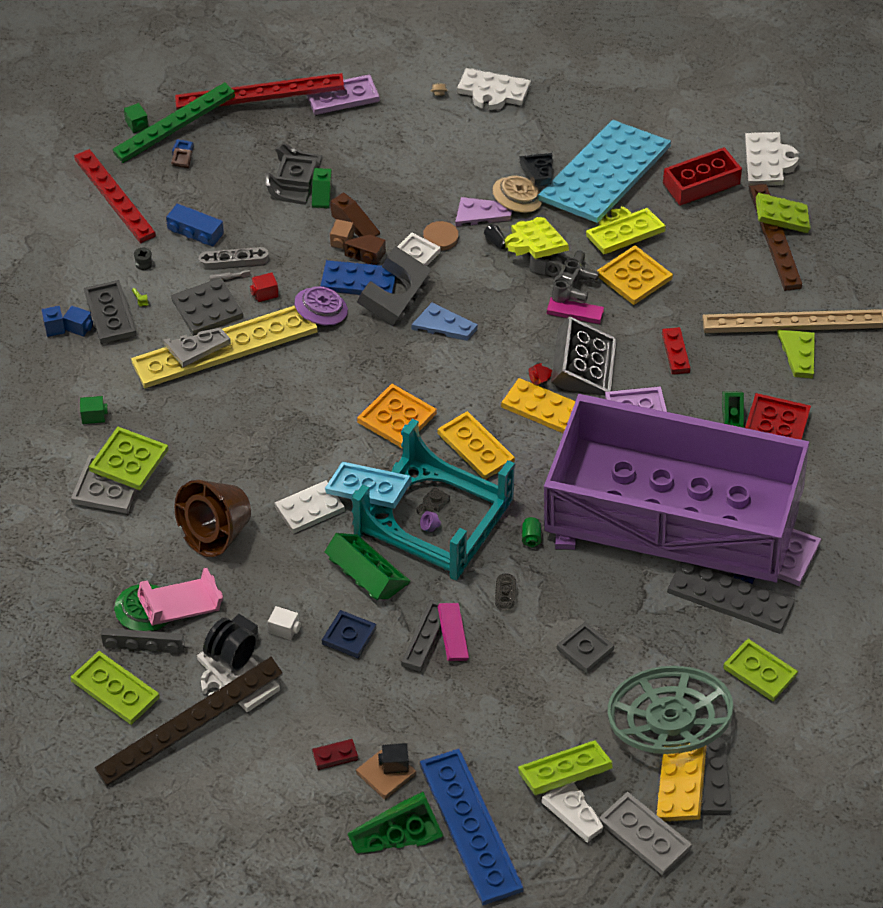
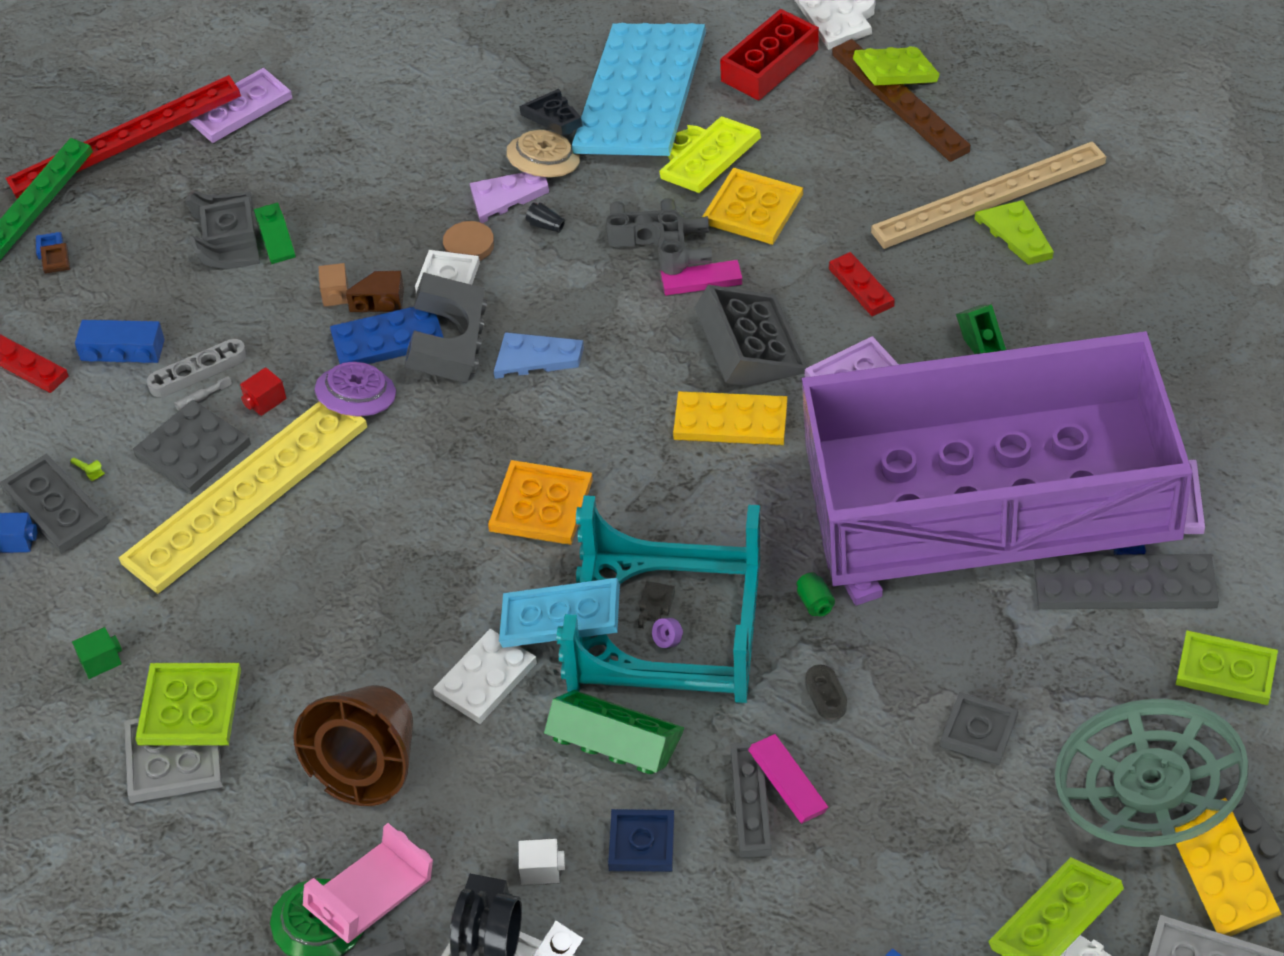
camera: 20 degrees left, 0 degrees up
(143, 258) = (67, 412): pearl dark grey wheel -> none
(195, 347) = (207, 509): light grey wing -> none
(348, 210) = (326, 248): reddish brown slope -> none
(439, 89) = (365, 57): tan plate -> none
(475, 445) = (671, 503): yellow plate -> none
(493, 88) = (435, 34): white plate -> none
(535, 237) = (602, 200): neon yellow plate -> none
(539, 374) = (703, 377): red plate -> none
(778, 416) = (1043, 320): red plate -> none

